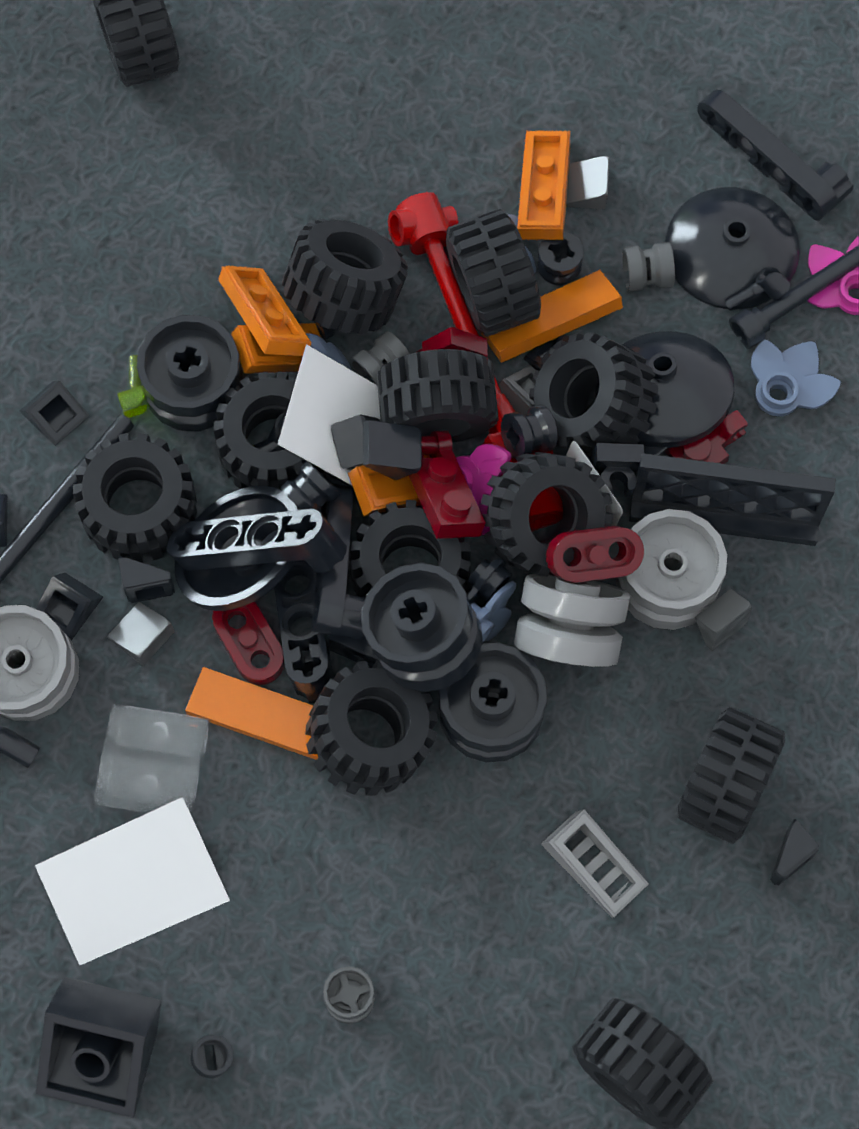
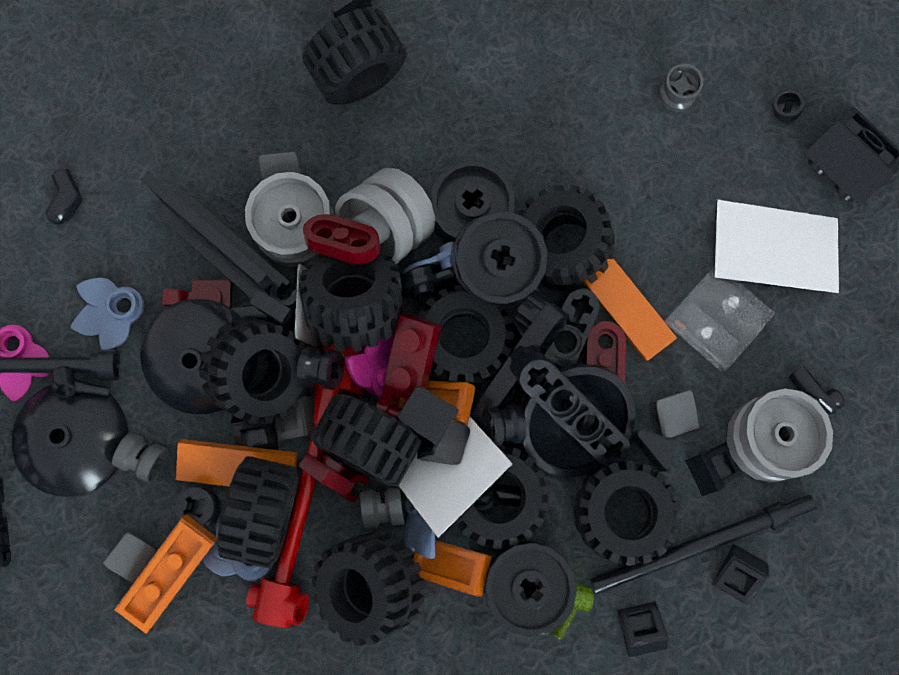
camera: 145 degrees left, 10 degrees up
(264, 311) = (446, 598): orange tile -> none
(582, 874) = (478, 100): light grey slope -> none

